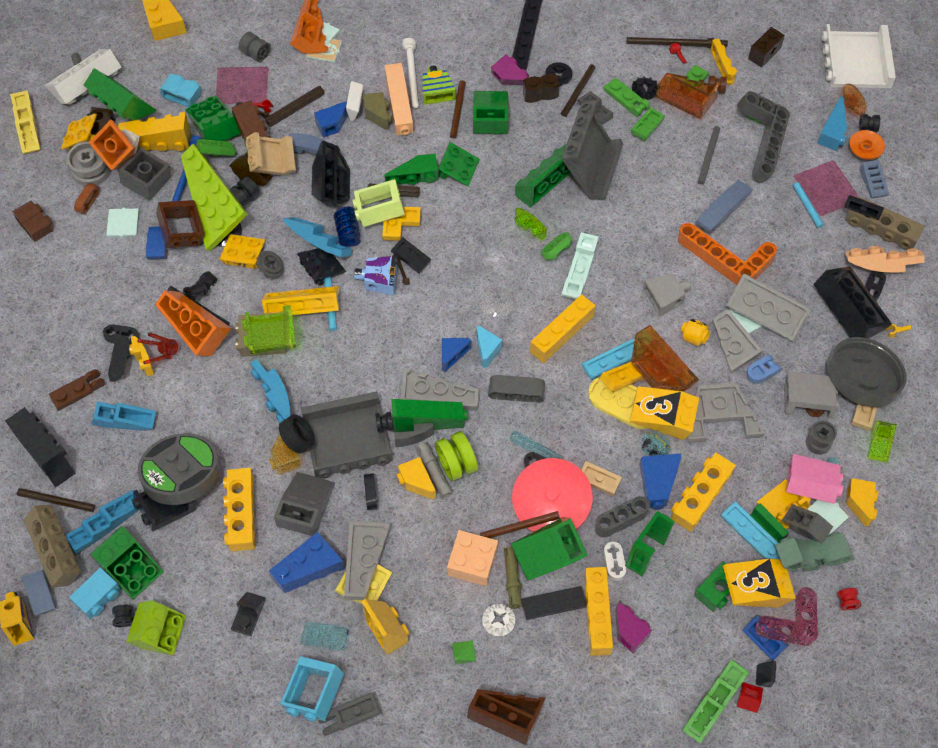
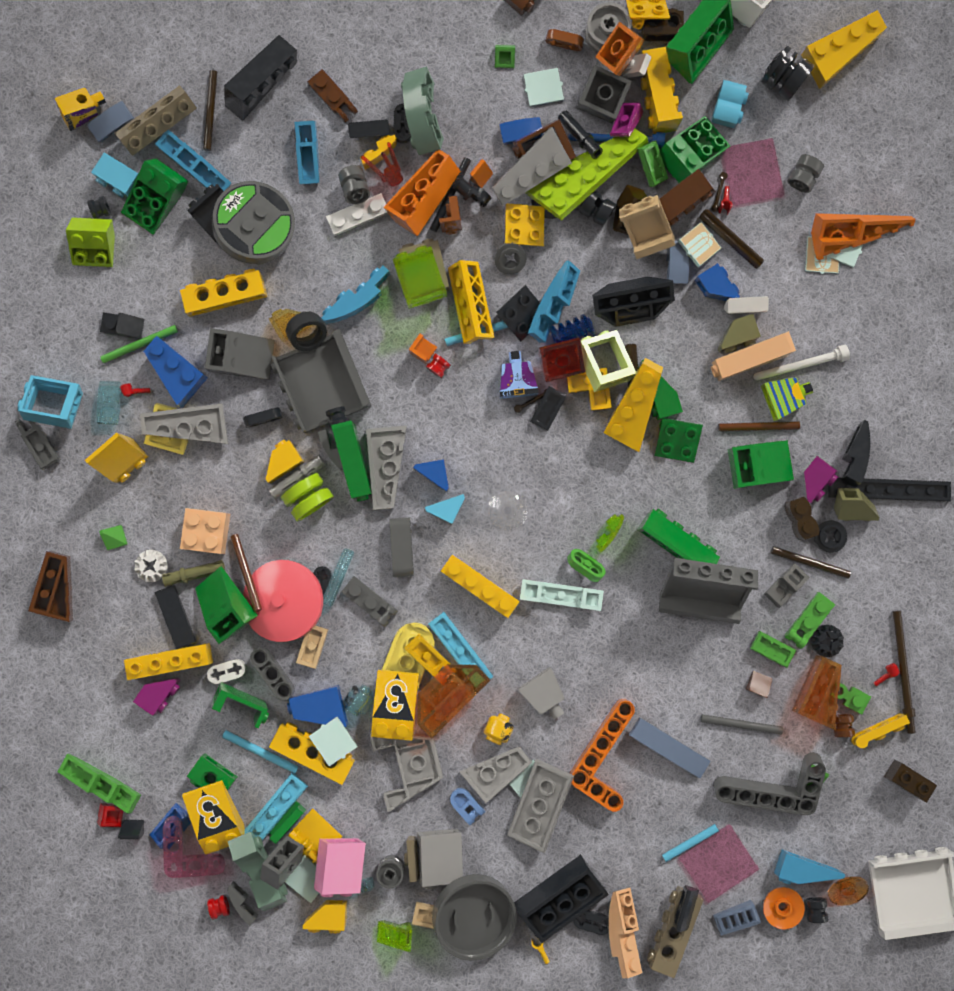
camera: 75 degrees right, 25 degrees up
(85, 247) = (504, 56): none -> bright green slope
(115, 312) = (417, 99): none -> sand green brick
(166, 379) = (354, 184): none -> dark grey wheel
(169, 44) = (787, 73): none -> black wheel
(175, 159) = (627, 119): none -> magenta slope
(180, 191) = (584, 139): none -> black pin
(185, 278) = (481, 173): none -> orange slope
(195, 228) = (537, 165): none -> light grey wing
(195, 384) = (357, 214): none -> white plate
(219, 299) = (453, 221): none -> dark orange bracket
(271, 600) = (138, 344): none -> bright green bar
(294, 126) = (699, 244): none -> piece
(316, 617) = (128, 391): none -> red hand
(335, 347) = (422, 349): none -> orange panel
(353, 335) = (438, 366): none -> red wheel
(371, 234) = (561, 359): none -> clear red slope
(423, 182) = (633, 411): none -> yellow wedge
(494, 43) = (857, 455): none -> black slope
(536, 52) = (854, 505): none -> olive slope
(562, 425) = (369, 600): none -> dark grey plate
(676, 138) = (759, 684): none -> slope
(693, 465) = (333, 741): none -> light aqua piece
(697, 542) = (260, 752): none -> medium azure bar
(807, 419) = (411, 858): none -> dark tan plate
(842, 578) = (237, 897): none -> dark grey slope

